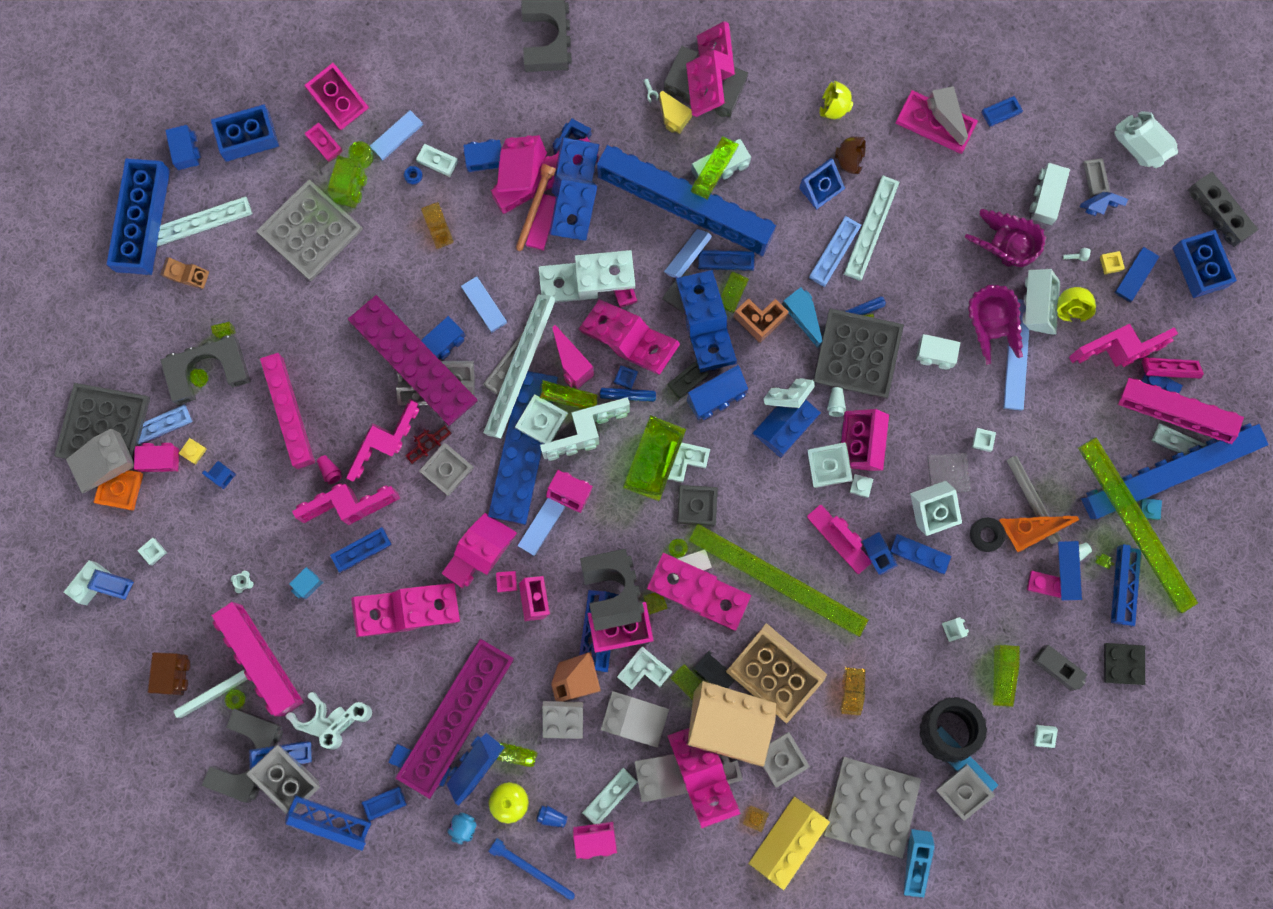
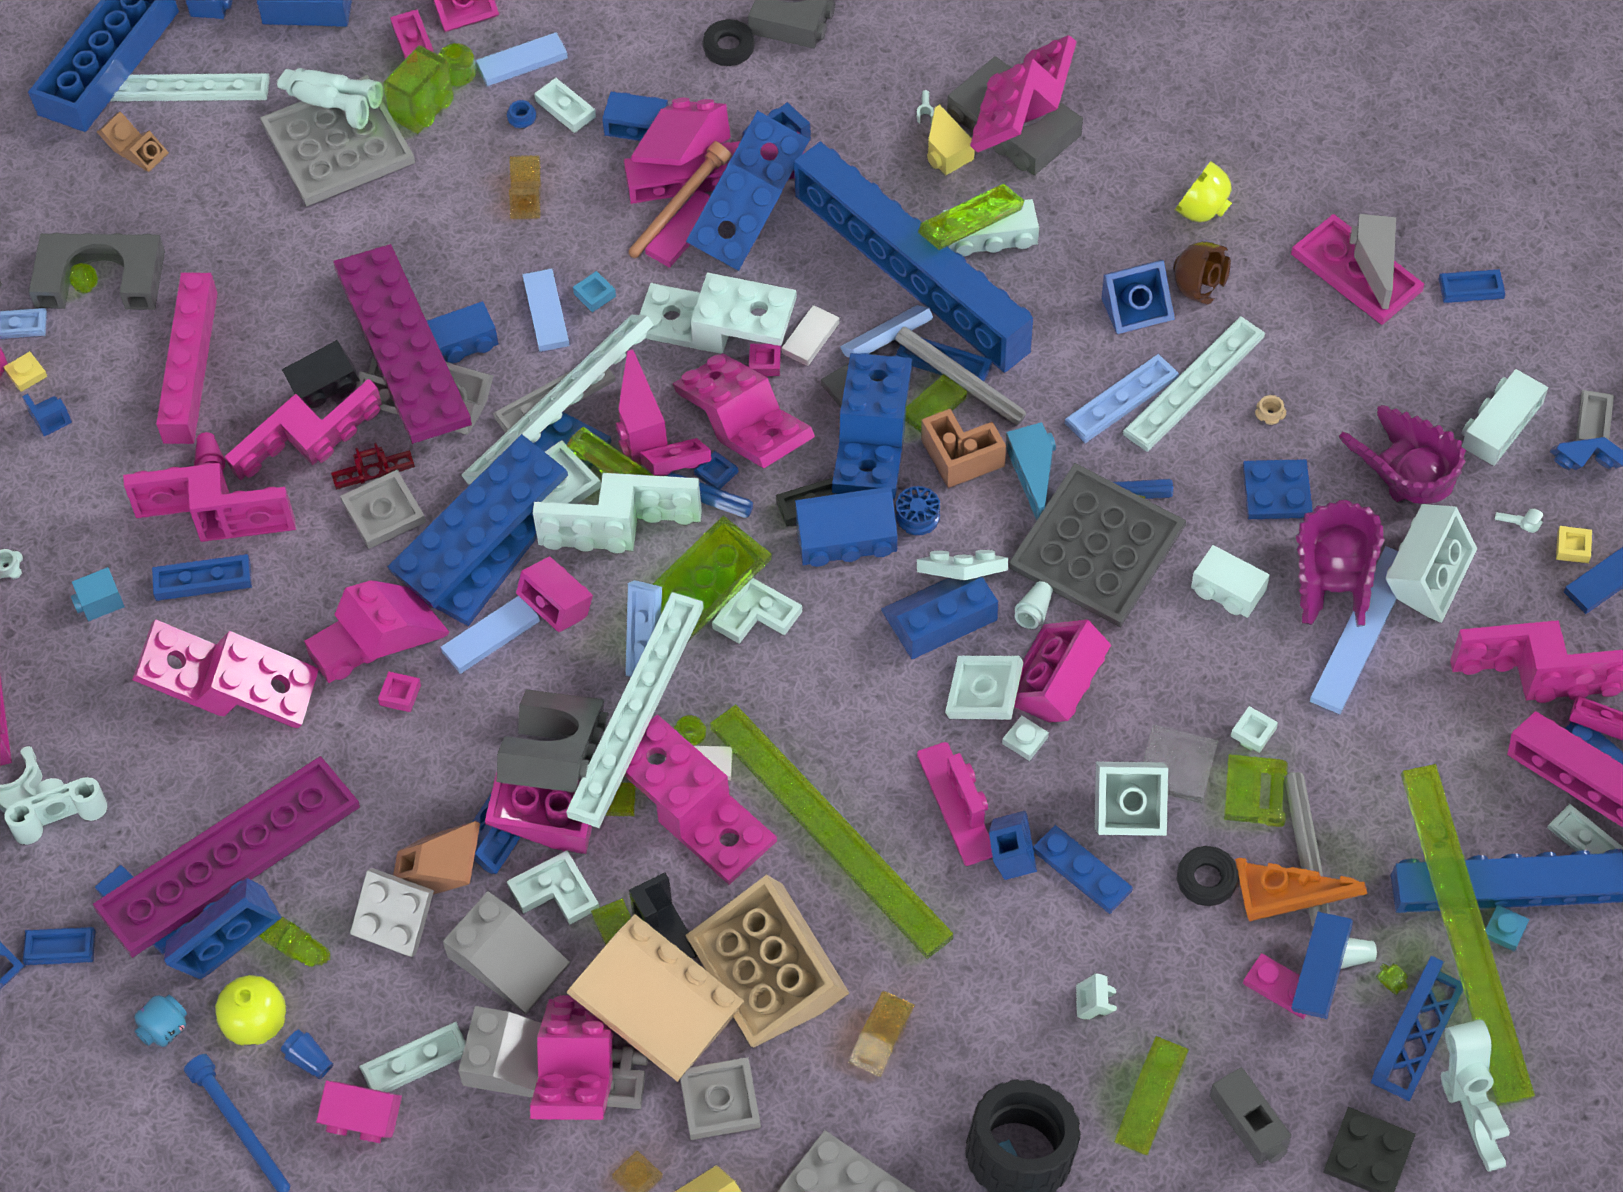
camera: 25 degrees right, 20 degrees down
(223, 329) = (149, 224): clear neon green plate -> none
(289, 201) = (330, 91): none -> light aqua piece
(377, 401) = (322, 375): none -> black slope
(508, 283) = (594, 291): none -> dark azure plate
(508, 462) = (477, 521): none -> blue plate
(516, 72) = (726, 28): none -> black tyre
(534, 598) = (429, 724): dark pink brick -> none
(601, 379) = (675, 456): none -> dark pink plate
(633, 501) = (642, 616): none -> light blue tile
(644, 269) = (810, 335): none -> white tile
(653, 557) = (635, 710): none -> light aqua plate
(697, 505) = (748, 681): dark grey tile -> none
(741, 269) = (960, 376): none -> light grey axle
(751, 364) = (918, 512): none -> blue wheel
(920, 227) = (1272, 403): none -> tan plate
(941, 281) = (1277, 489): none -> blue plate
(989, 476) = (1244, 788): none -> clear neon green plate
(1078, 302) = (1486, 576): neon yellow cylinder -> none
(1167, 609) = (1468, 1083): none -> light aqua piece

